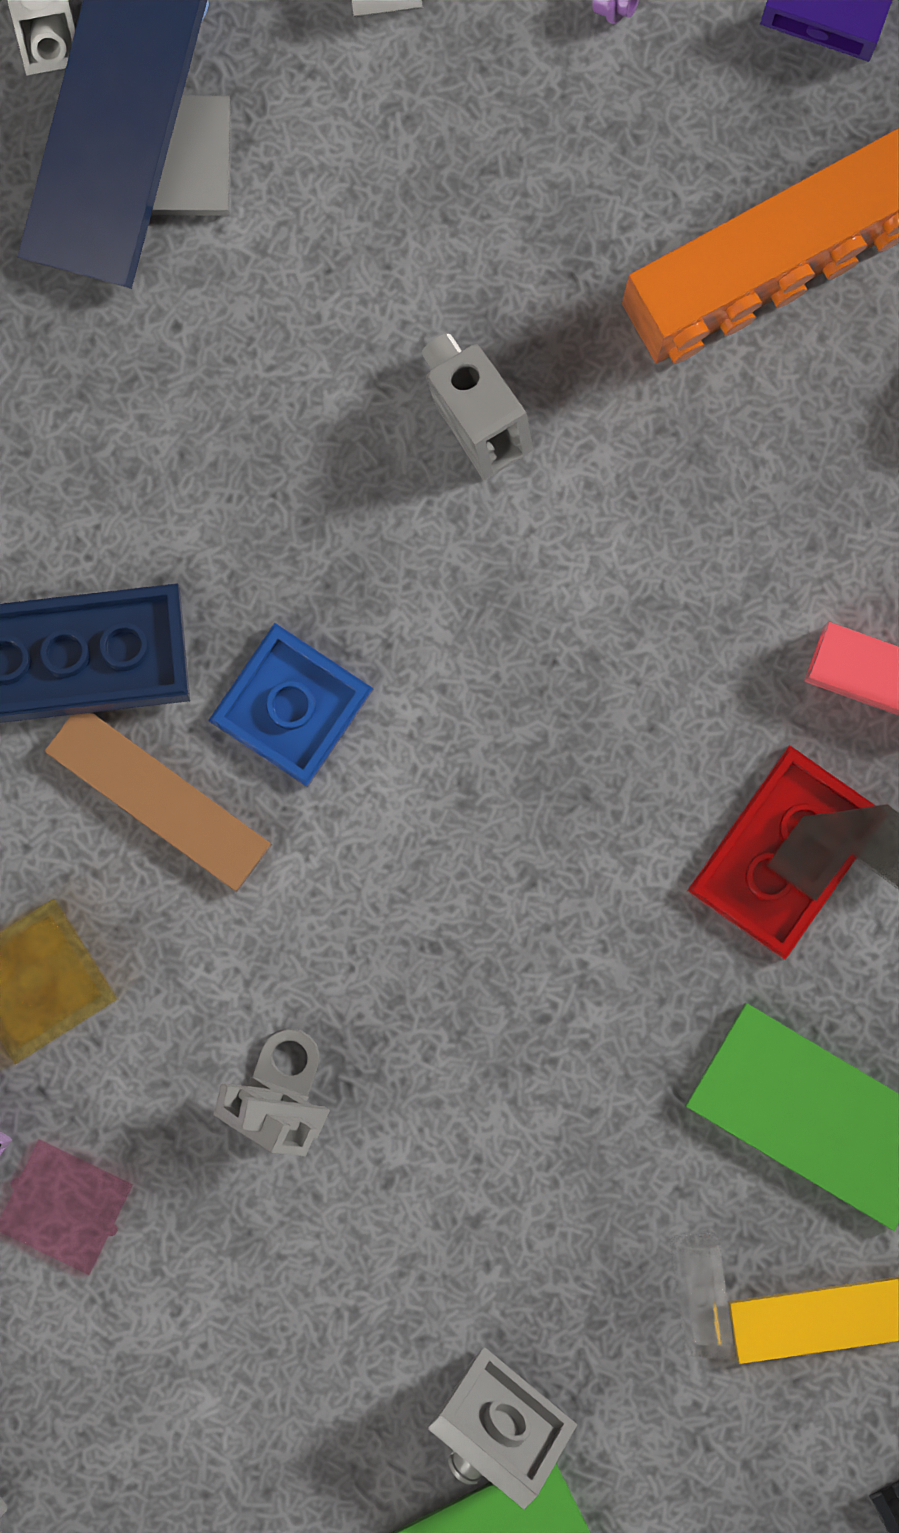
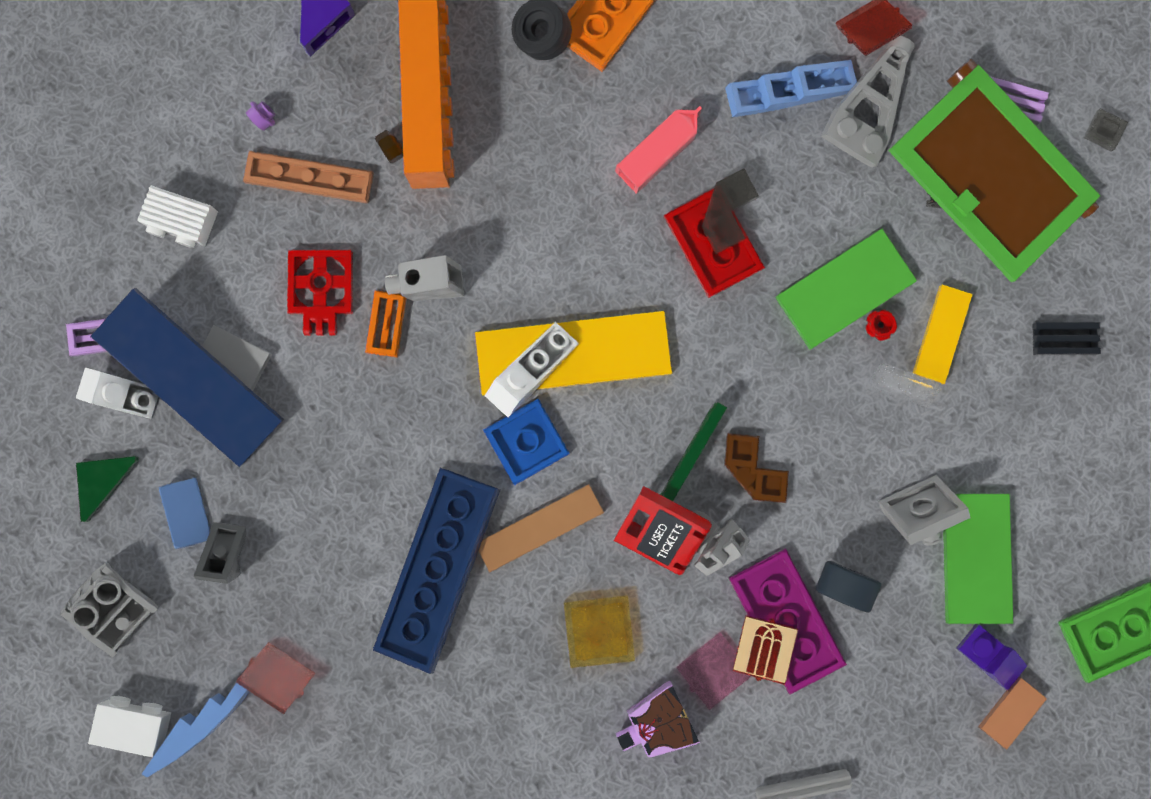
camera: 65 degrees left, 0 degrees up
(139, 1273) = (765, 649): none -> piece
(205, 1289) = (778, 592): none -> magenta tile
(250, 1016) = (669, 534): none -> red container
(310, 1361) = (848, 586): none -> black wheel
(337, 257) = (320, 312): none -> red piece
(363, 354) = (382, 351): none -> orange tile
(390, 988) = (693, 451): none -> dark green tile
(412, 650) = (530, 369): none -> white slope
(414, 1127) = (759, 483): none -> reddish brown tile
(478, 709) = (606, 350): none -> yellow tile
(553, 124) = (308, 177): none -> nougat tile
(671, 229) = (390, 146): none -> dark brown tile
(803, 1209) = (888, 321): none -> red plate

